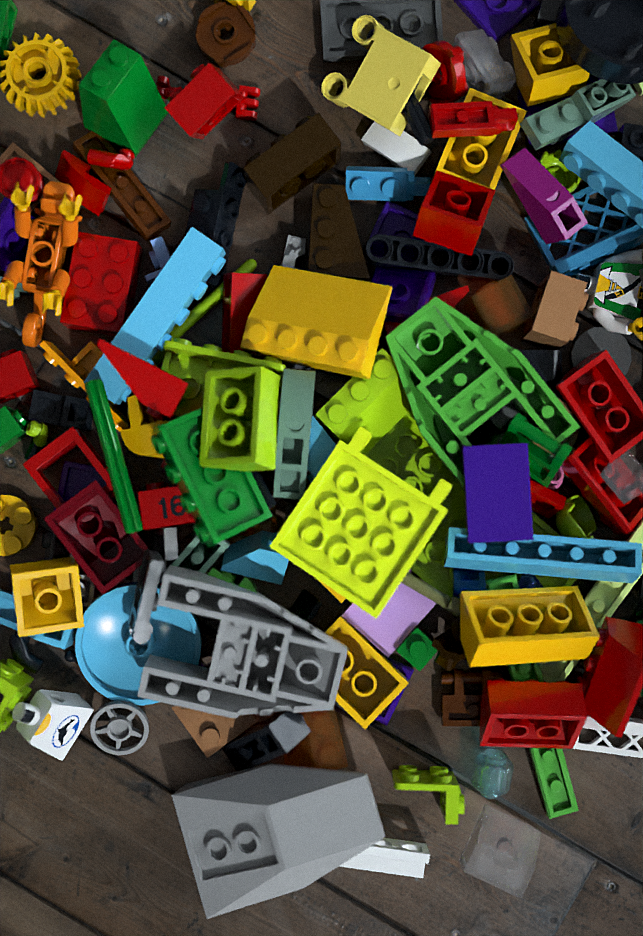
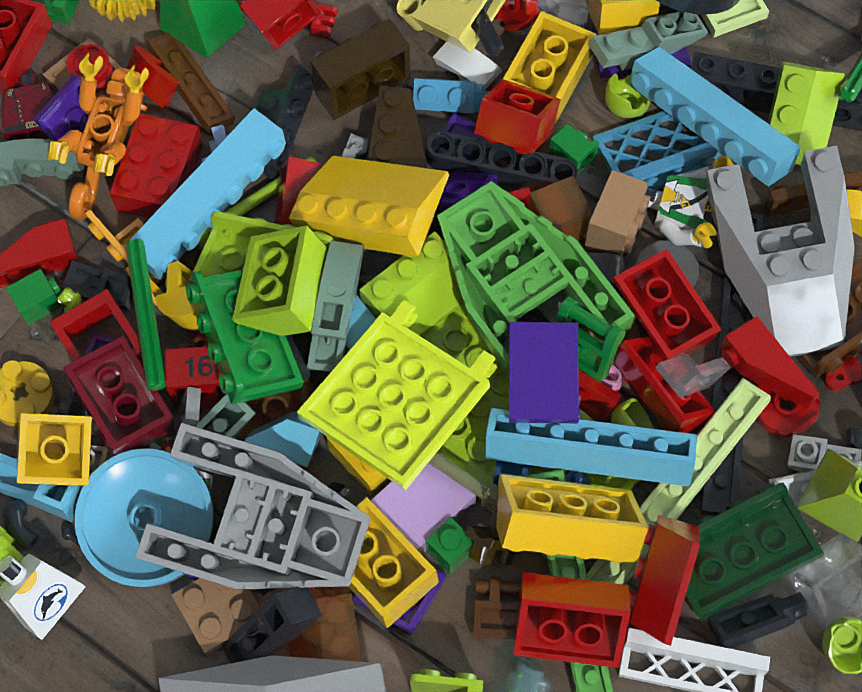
camera: 10 degrees right, 20 degrees down
(119, 727) = (110, 611): light grey wheel -> none
(122, 160) = (191, 57): red arm -> none
(145, 596) = (158, 457): hinge -> none
(150, 384) = (191, 243): red slope -> none
(470, 119) = (539, 33): red hinge -> none
(505, 233) = (573, 145): none -> green brick
(544, 198) = (610, 111): magenta slope -> none

